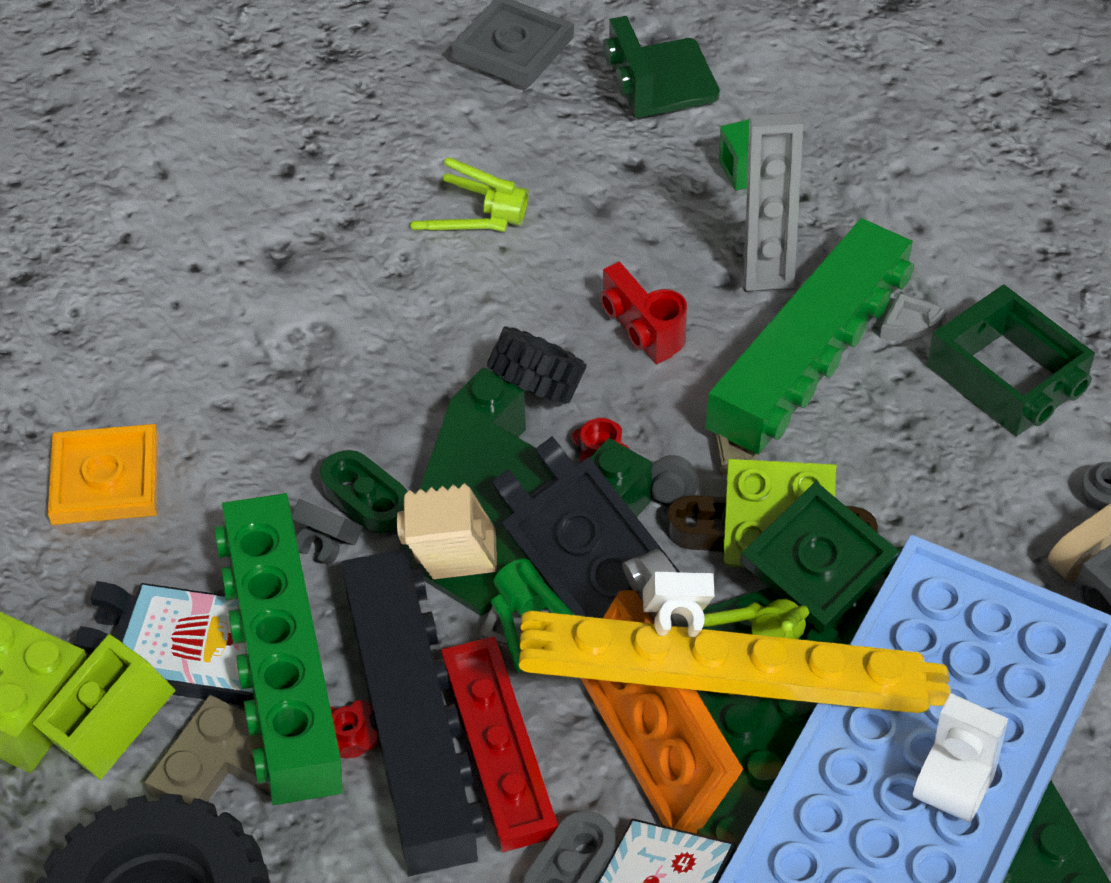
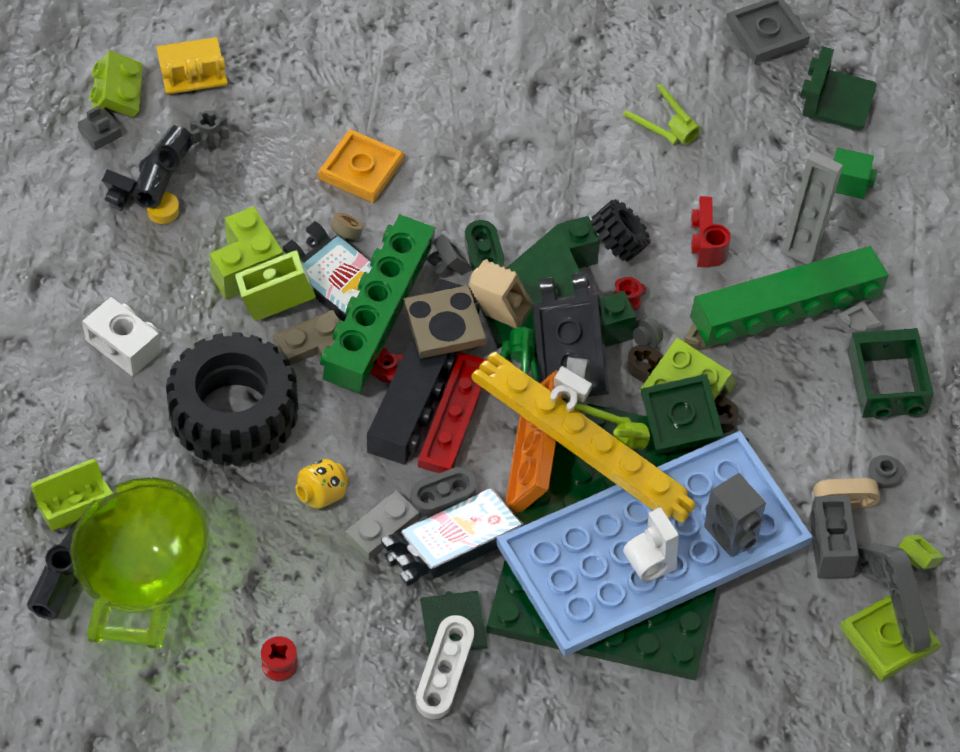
camera: 30 degrees right, 5 degrees up
(145, 565) = (346, 226): none -> dark tan tile
(397, 617) = (444, 321): none -> dark tan tile
(1031, 647) = (734, 515): none -> dark grey brick

